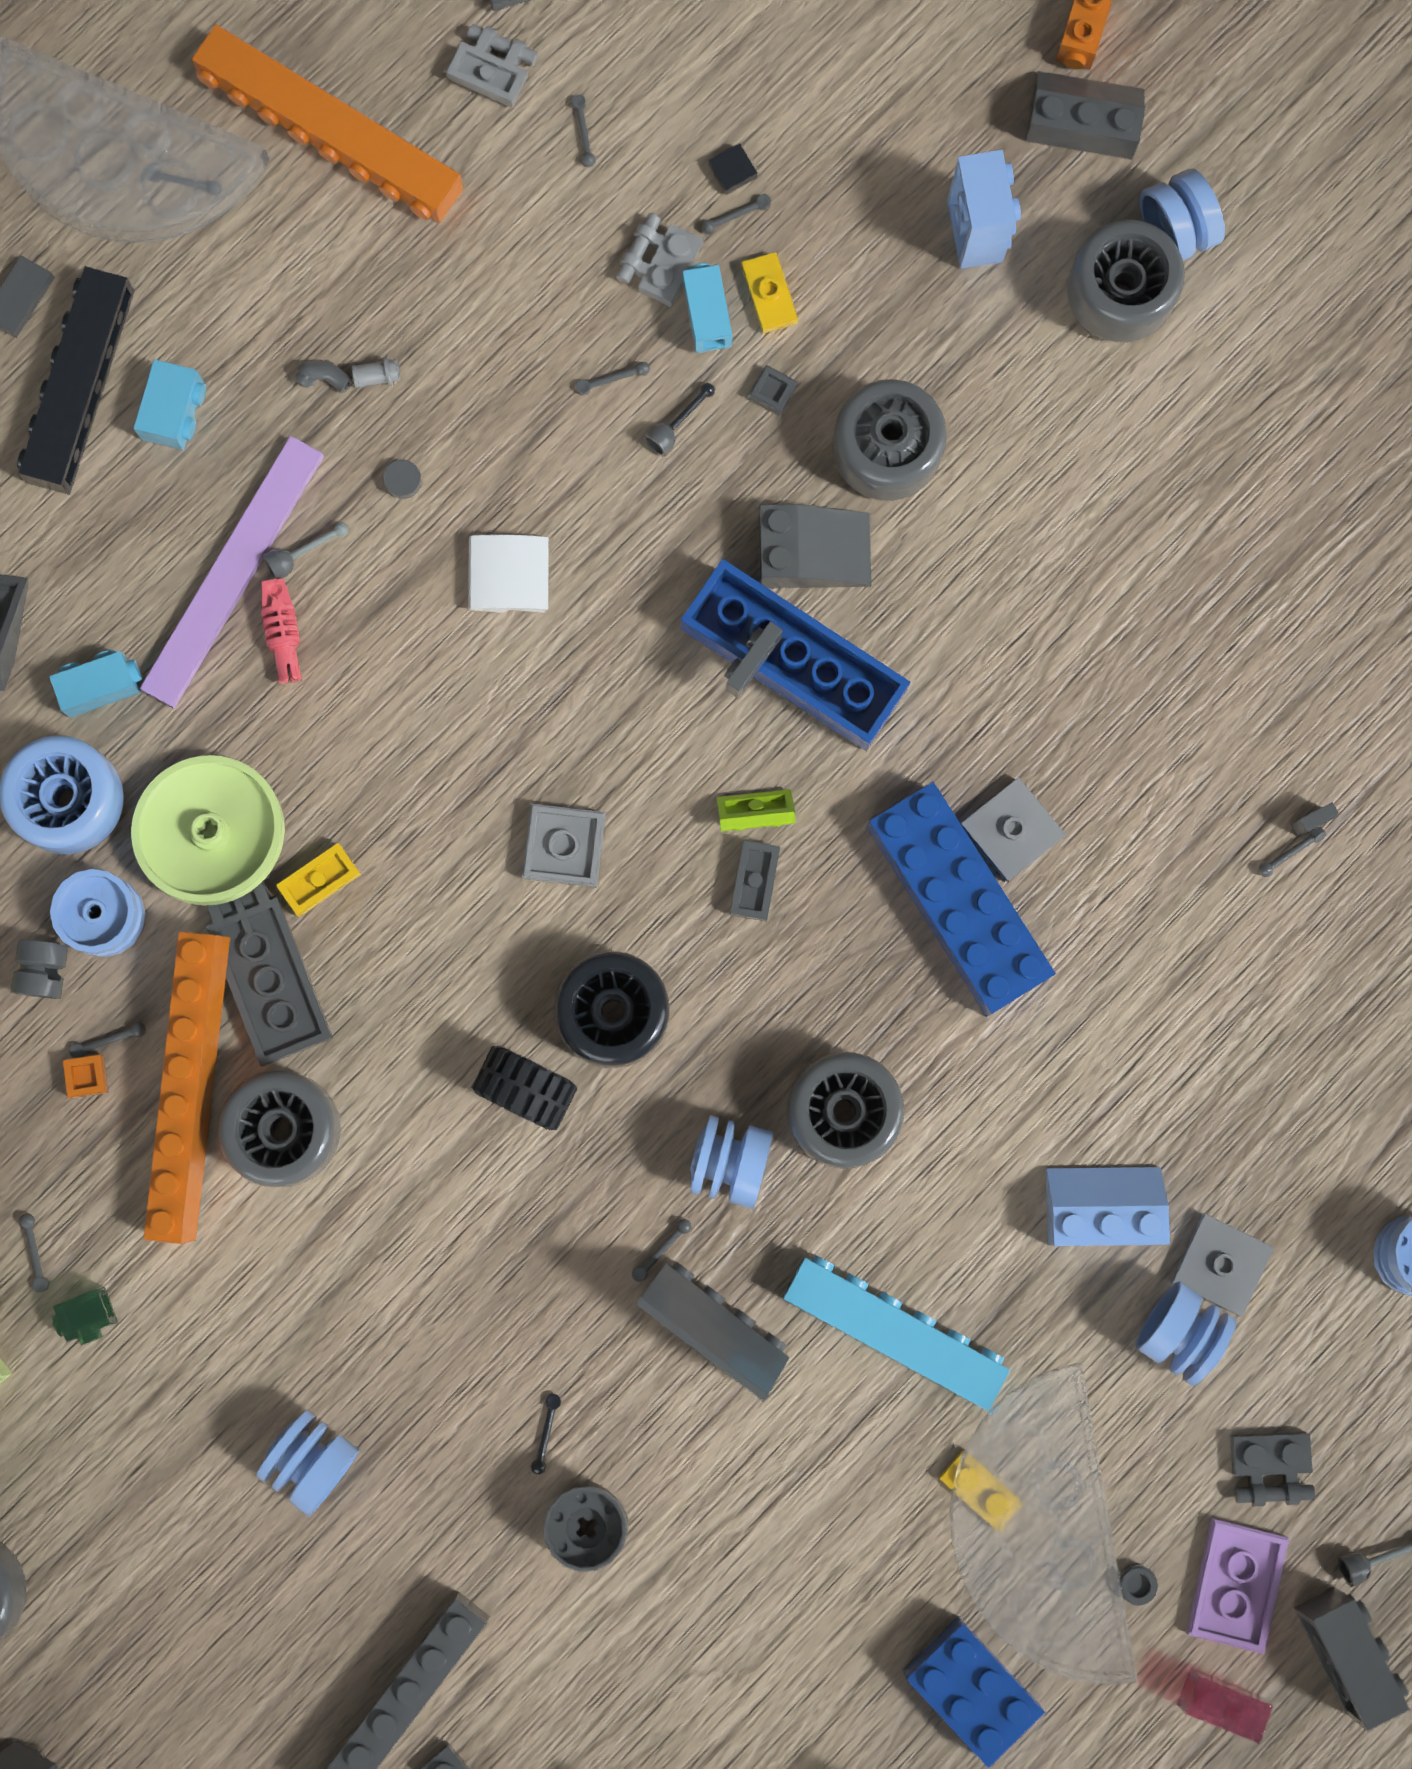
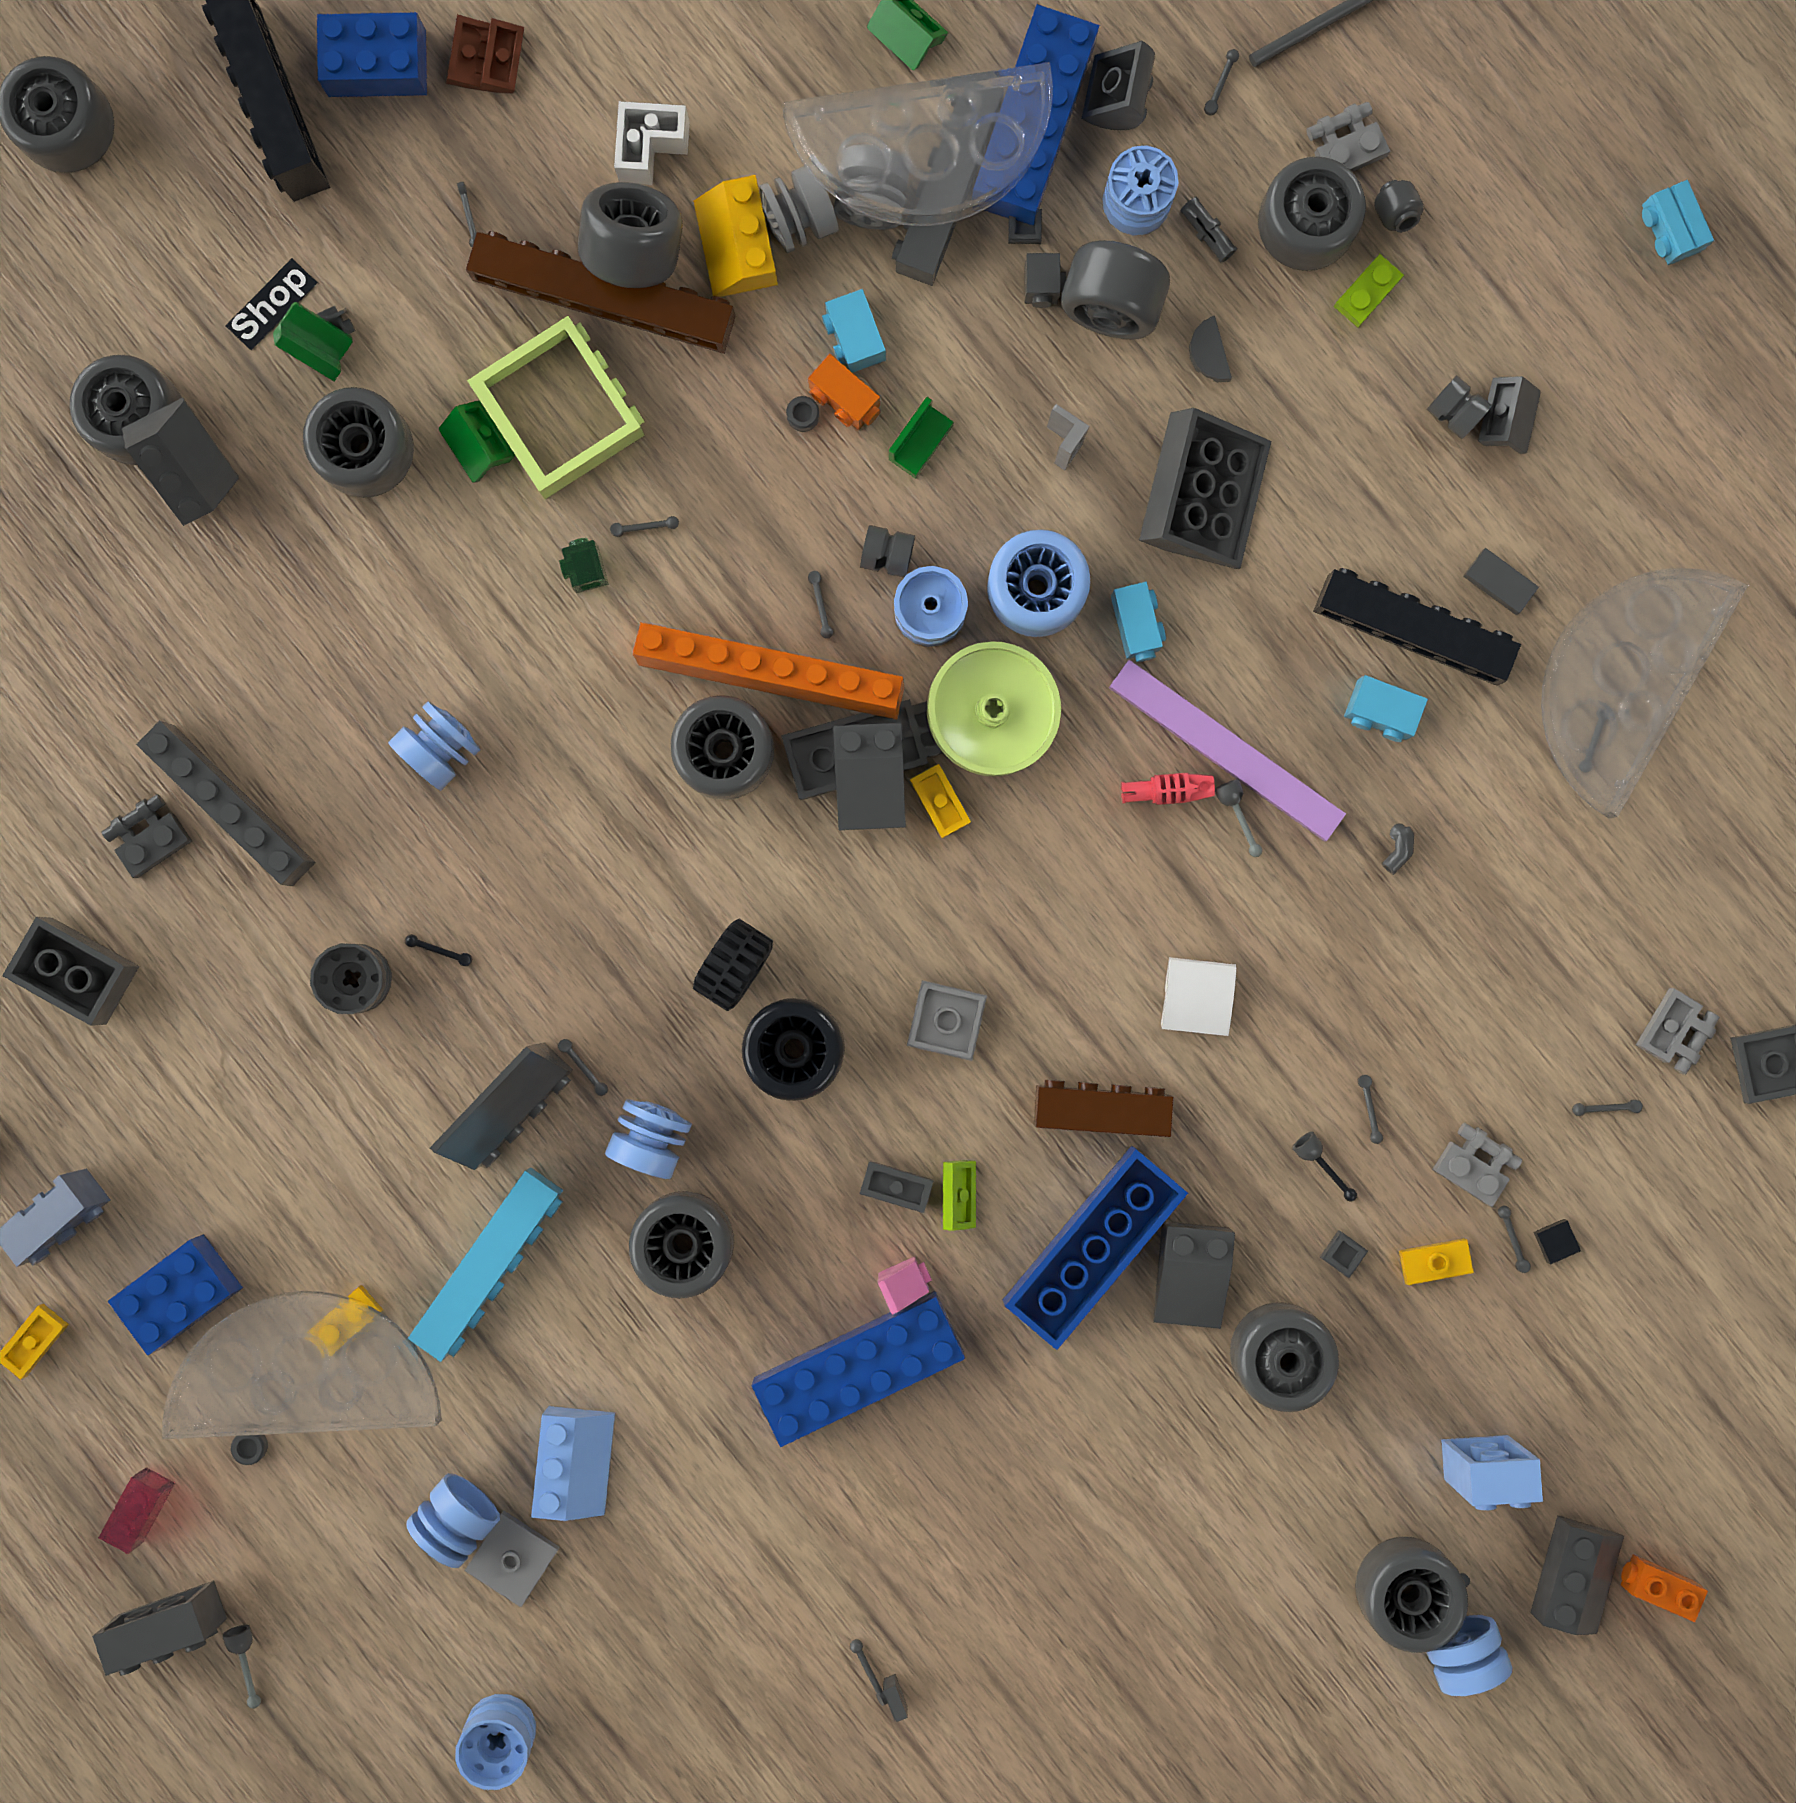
camera: 95 degrees right, 5 degrees up
(85, 1076) = (790, 583): orange plate -> none
(296, 959) = (869, 776): none -> dark grey slope
(327, 124) = (1635, 874): orange brick -> none
(376, 373) = (1396, 896): light grey pin -> none
(402, 479) = (1295, 910): dark grey tile -> none
(644, 663) = (1103, 1110): none -> reddish brown brick
(707, 307) = (1426, 1204): medium azure brick -> none
(742, 671) = (1102, 1220): dark grey plate -> none
(860, 859) = (904, 1284): none -> bright pink slope
(1013, 830) = (917, 1422): light grey plate -> none
(1237, 1585) = (237, 1534): lavender tile -> none
(1272, 1455) = (344, 1579): dark grey plate -> none

